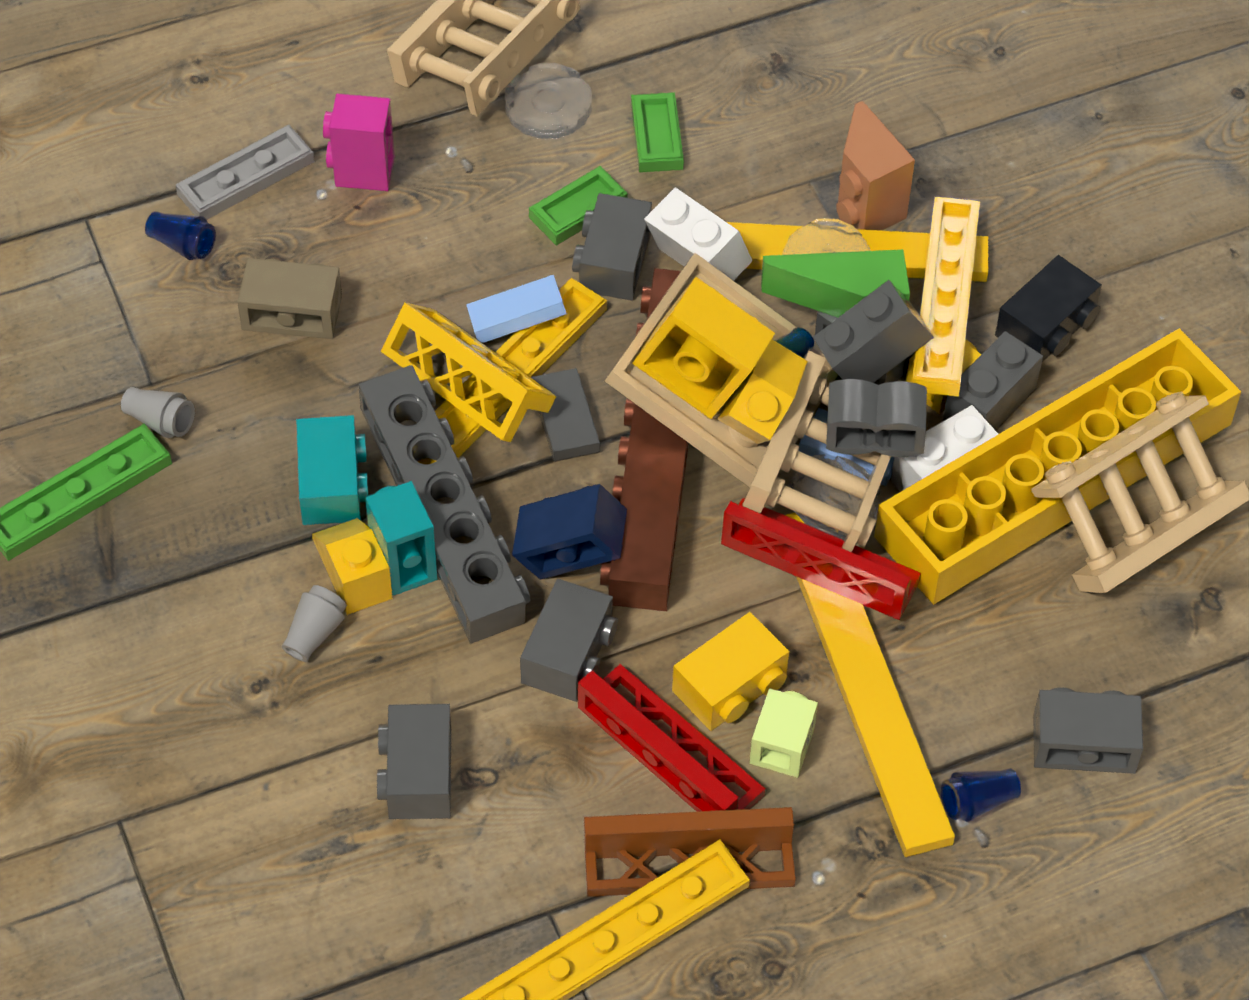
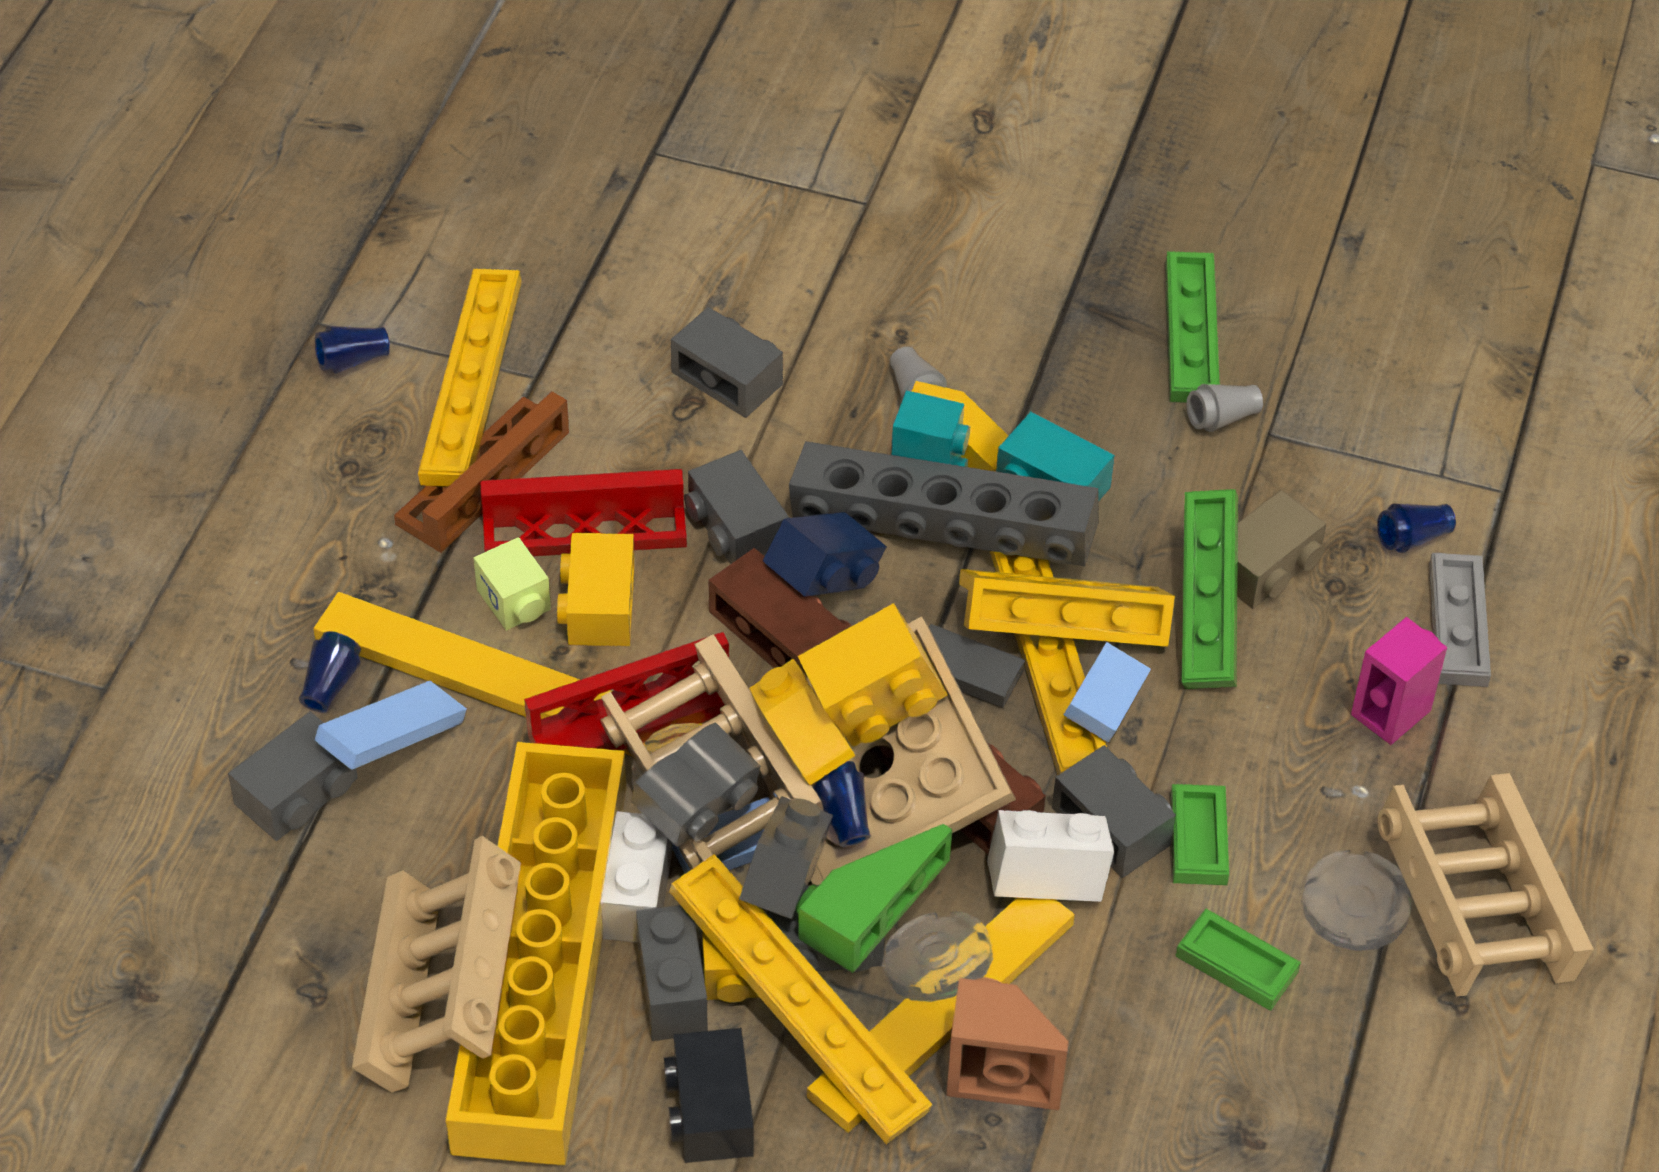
camera: 130 degrees right, 5 degrees down
(370, 293) = (1210, 589): none -> bright green tile
(991, 690) = (390, 724): none -> light blue tile

